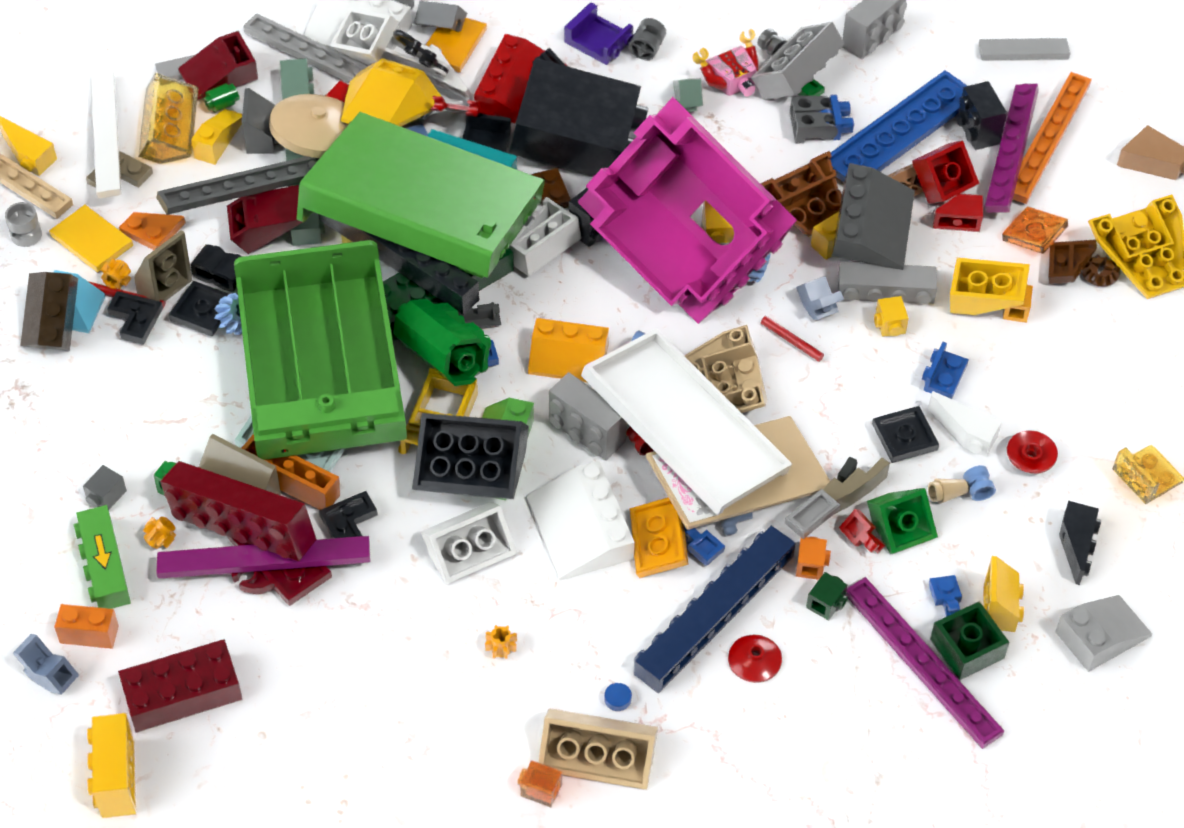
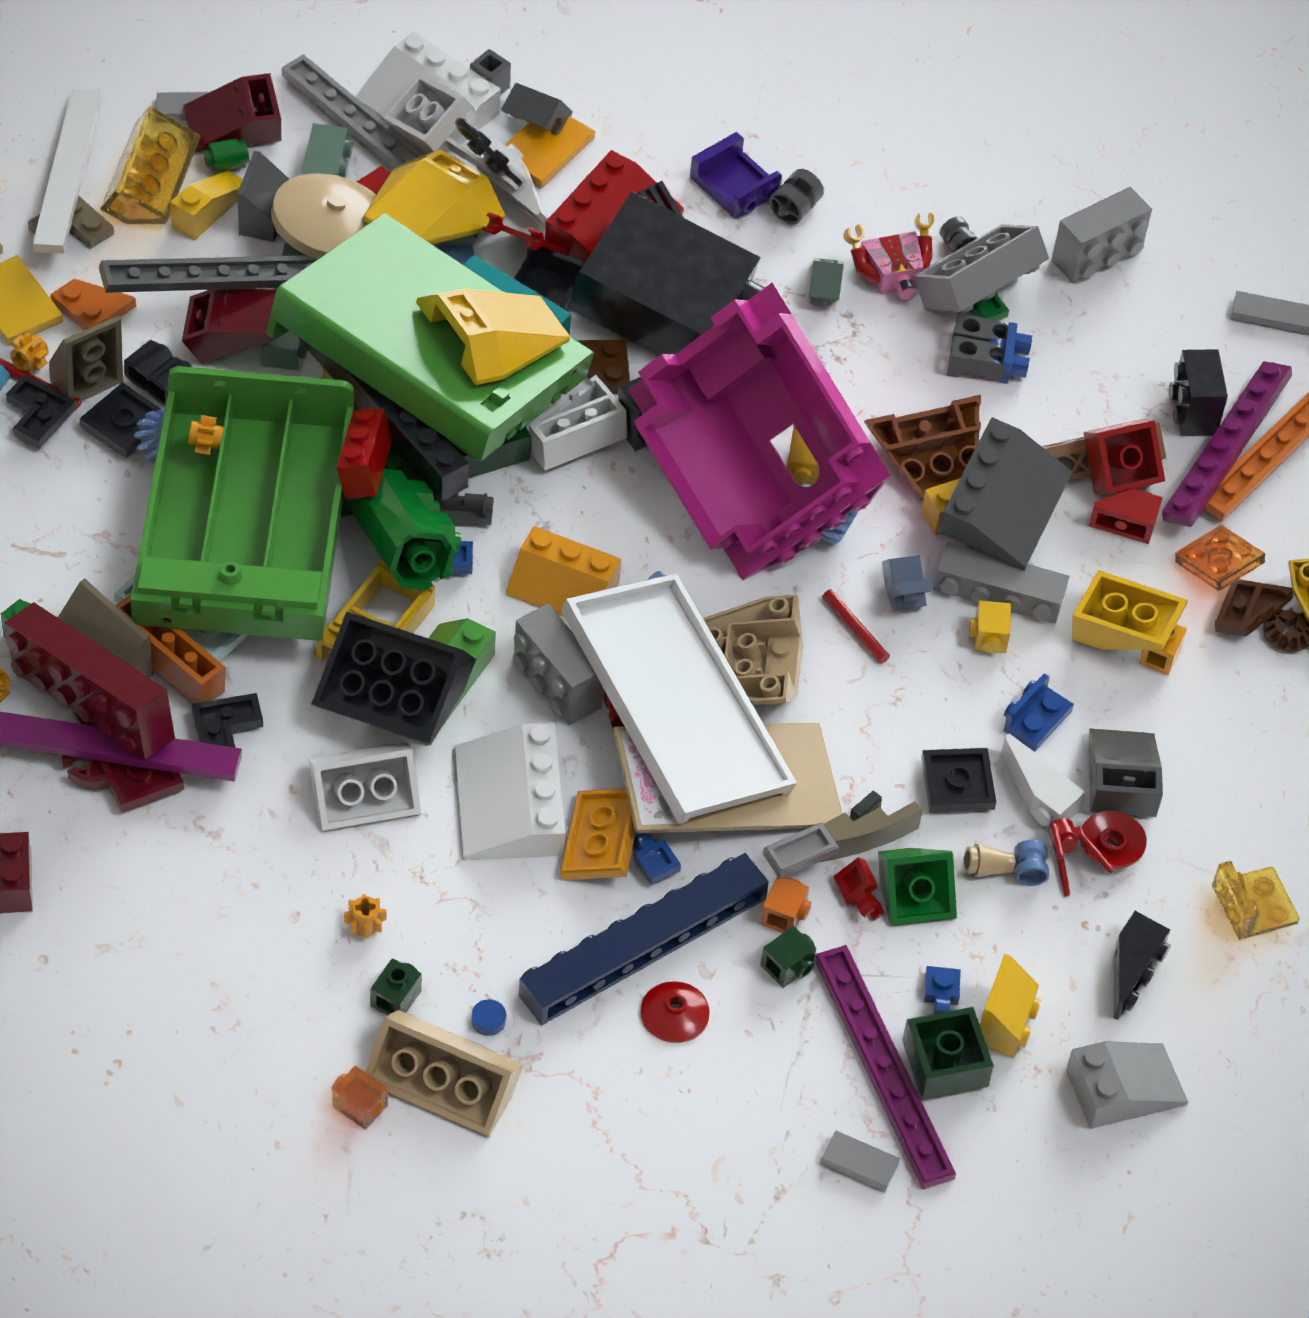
camera: 10 degrees right, 0 degrees up
(274, 304) = (205, 435): none -> light orange gear
(398, 291) = (364, 453): none -> red brick
(476, 176) = (498, 329): none -> yellow wedge
(542, 692) = (396, 988): none -> dark green brick
(729, 524) = (696, 840): sand blue arm -> none
(901, 126) = (1090, 384): blue plate -> none
(930, 738) = (860, 1161): none -> light grey tile
(998, 461) = (1065, 840): none -> red plant
(1023, 400) = (1124, 772): none -> dark grey slope

